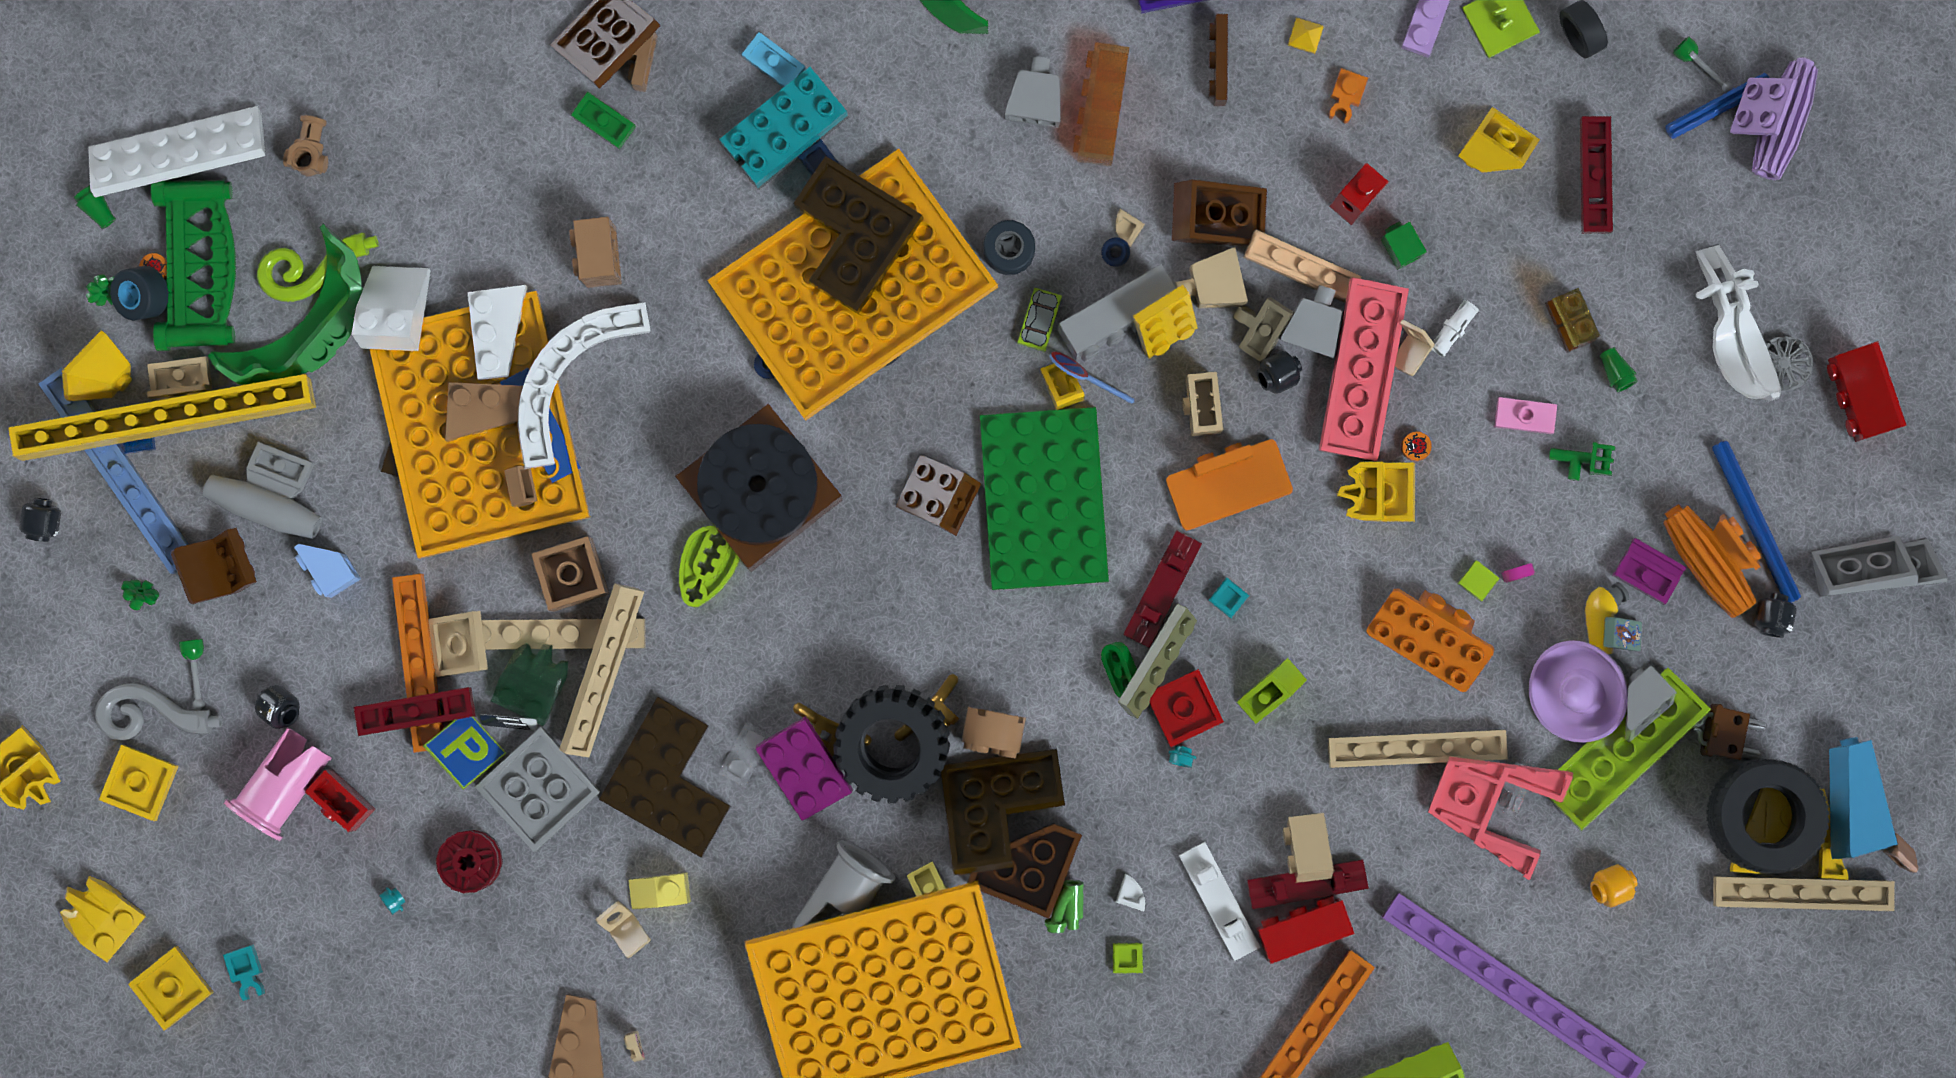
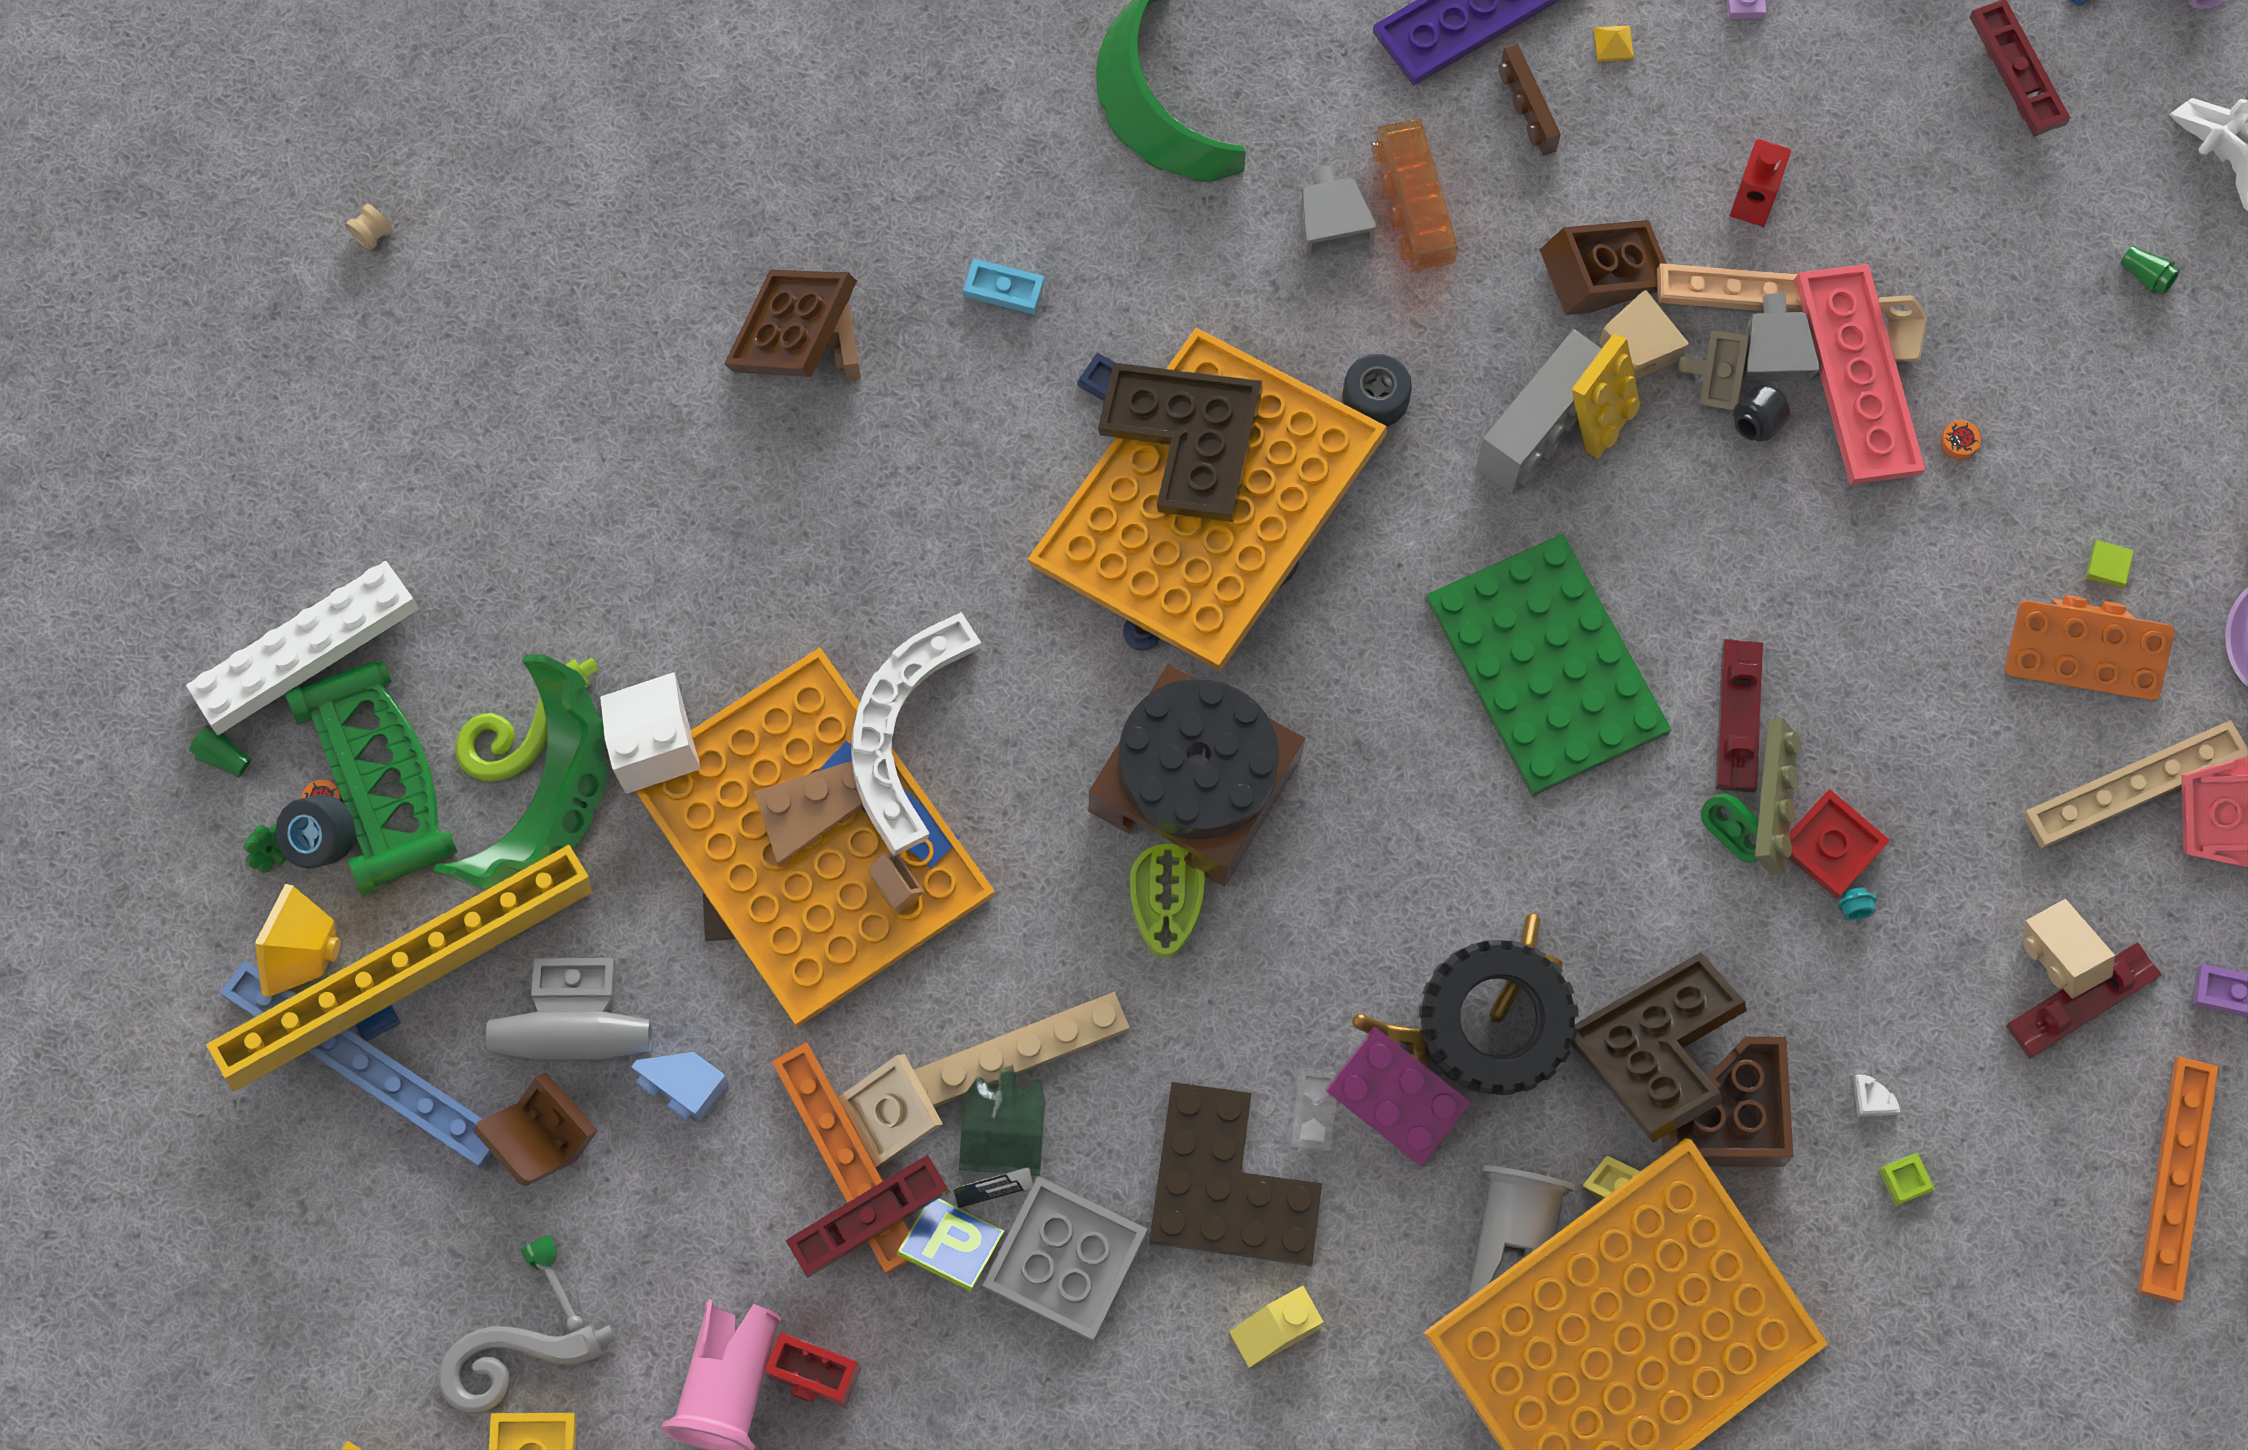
camera: 25 degrees left, 15 degrees down
(40, 520) = (280, 1163): black head -> none
(139, 593) = (445, 1209): green plant -> none
(179, 378) = (400, 915): tan bracket -> none
(277, 707) = (683, 1282): black head -> none
(308, 144) = (468, 583): medium nougat connector -> none
(452, 865) = (1029, 1404): dark red wheel -> none
(494, 328) = (787, 707): white wing -> none
(570, 574) = (1000, 967): medium nougat brick -> none
(596, 251) = (879, 571): medium nougat brick -> none
(601, 670) = (1089, 1071): tan plate -> none
(603, 120) = (824, 425): green plate -> none
(624, 929) = (1252, 1395): tan bracket -> none
(784, 127) = (1048, 353): teal piece -> none
(938, 494) = (1417, 703): bracket -> none
(993, 730) = (1615, 956): medium nougat brick -> none
(1039, 319) = (1448, 461): tile -> none
(1063, 388) = (1512, 522): yellow slope -> none
(1068, 906) = (1808, 1141): bright green plant -> none
(1076, 370) = (1550, 503): piece -> none
(1107, 251) = (1509, 340): dark blue plate -> none
(1128, 227) = (1505, 321): tan tile -> none
(1203, 404) = (1691, 478): tan brick -> none
(1219, 901) = (1986, 1064): white hinge -> none
(1228, 483) = (1760, 561): orange bracket -> none
(1228, 597) = (1823, 695): teal tile -> none
(1272, 691) = (1929, 782): lime slope -> none
(1304, 929) = (2109, 1054): red brick -> none
(1347, 91) = (1692, 84): orange plate -> none
(1381, 492) = (1947, 503): yellow plate -> none
(1403, 244) = (1836, 221): green brick -> none
(1454, 327) = (1940, 291): white pin -> none
(1498, 144) = (1890, 78): yellow slope -> none
(1518, 573) = (2151, 536): dark pink tile -> none
(1525, 415) = (2069, 359): bright pink plate -> none
(1574, 314) = (2068, 218): clear yellow hips -> none
(1576, 459) = (2171, 375): green arm -> none

